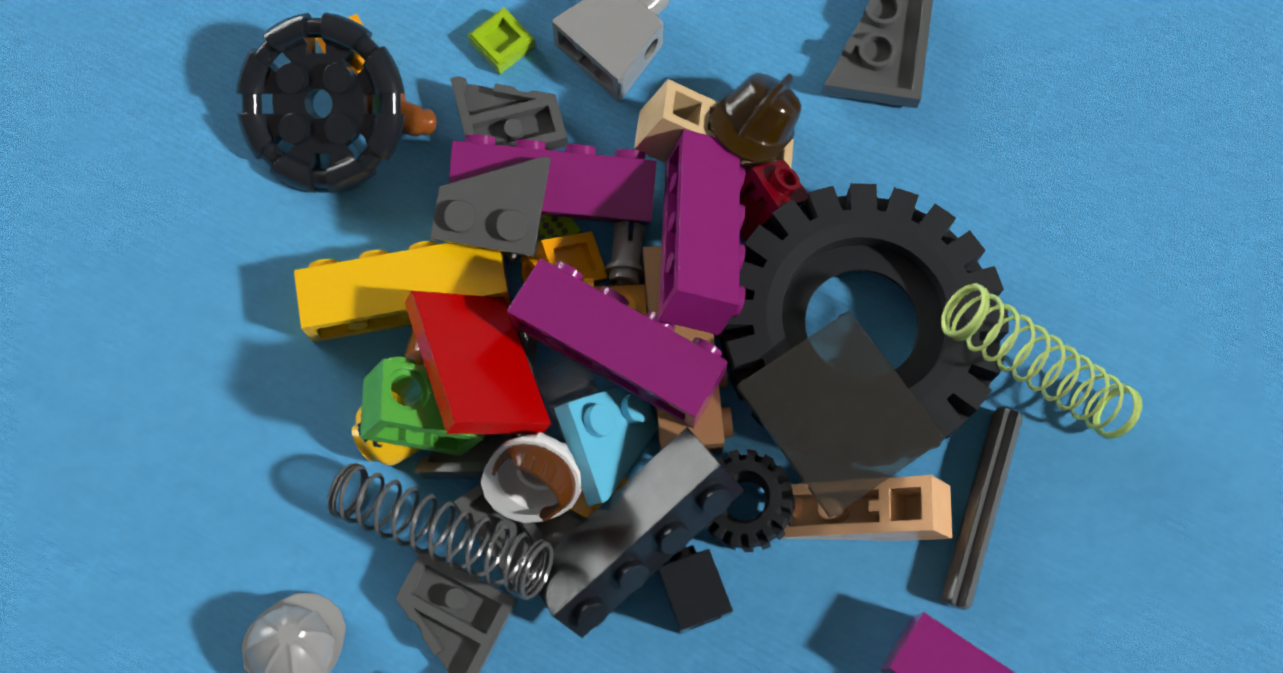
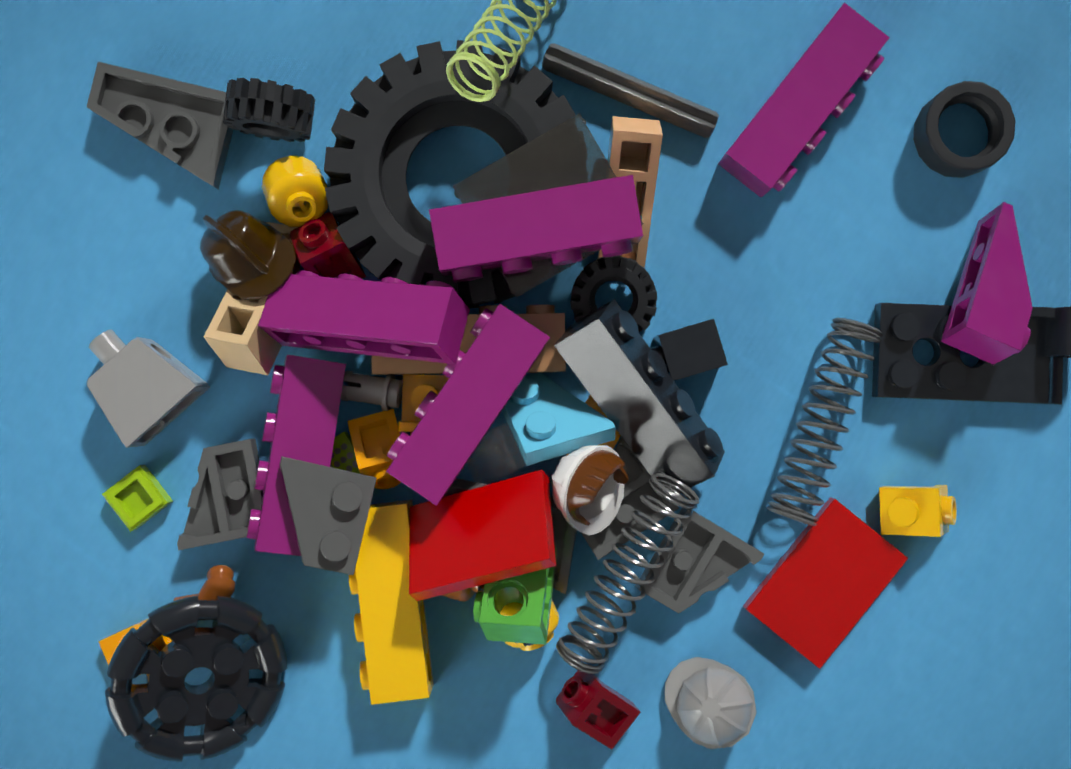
camera: 85 degrees left, 15 degrees up
(287, 515) = (596, 708): none -> dark red bracket
(813, 395) = (536, 227): none -> magenta brick
(828, 160) = (294, 190): none -> yellow head
(908, 129) = (268, 109): none -> black tyre

